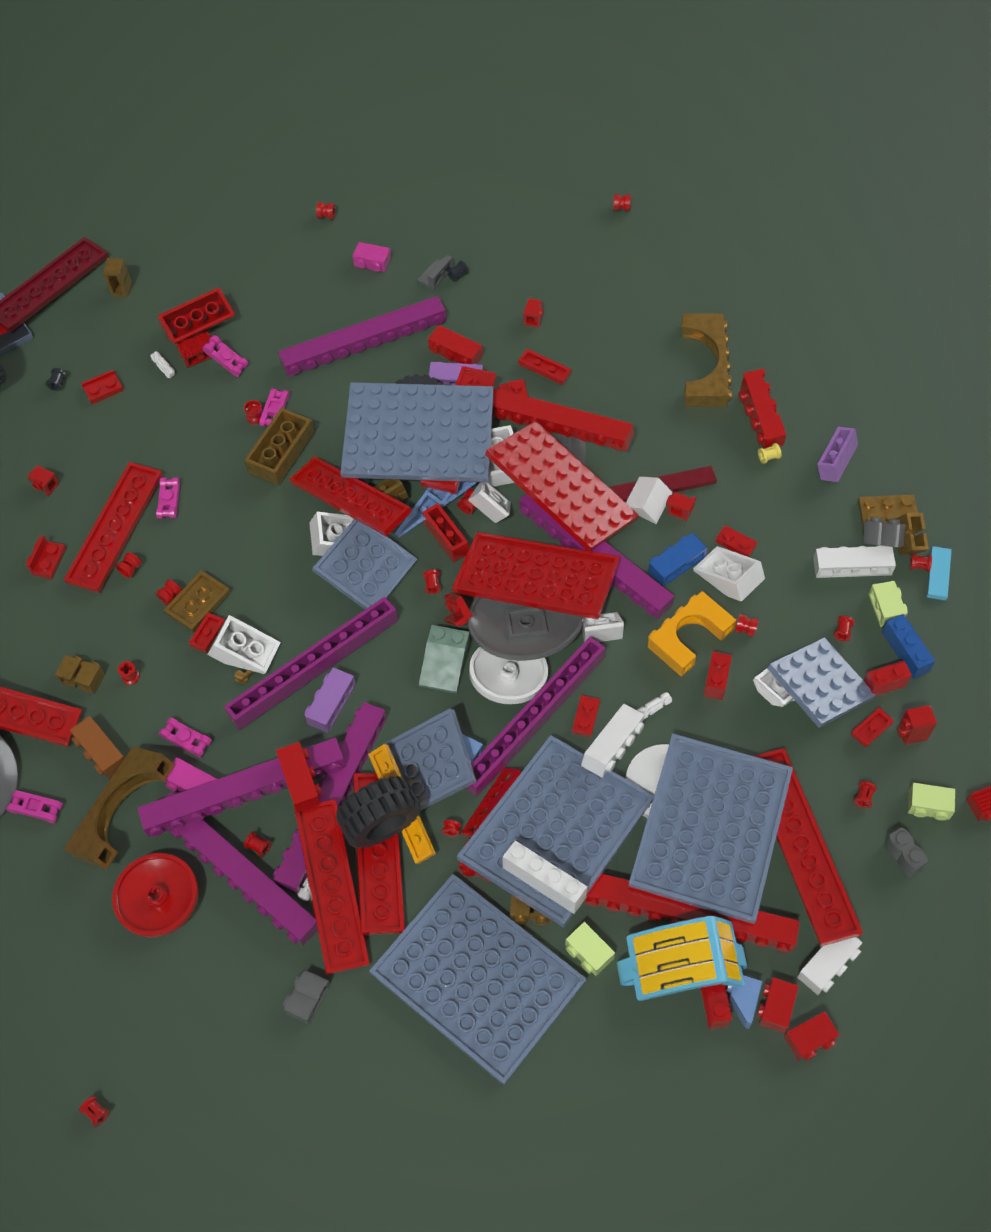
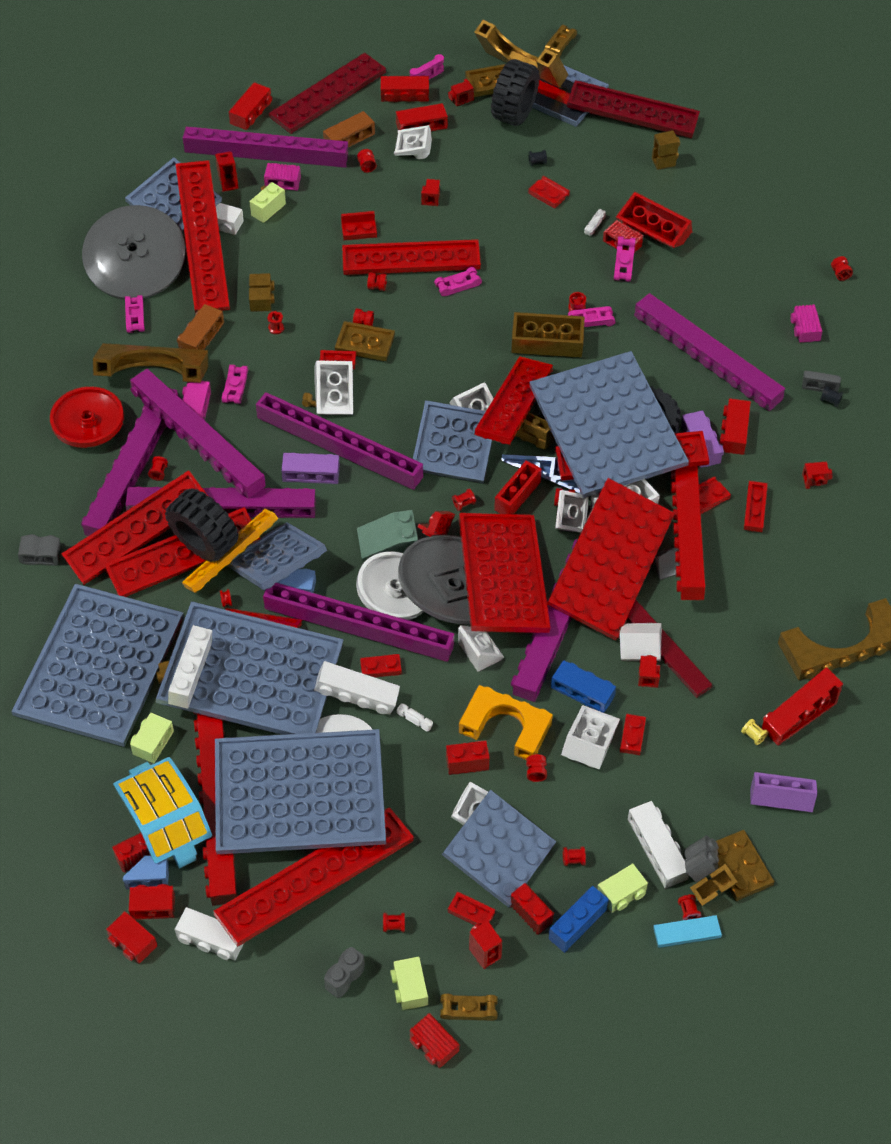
camera: 65 degrees right, 5 degrees down
(299, 776) = (212, 459): red brick -> none
(964, 763) = (468, 1007): none -> pearl gold plate

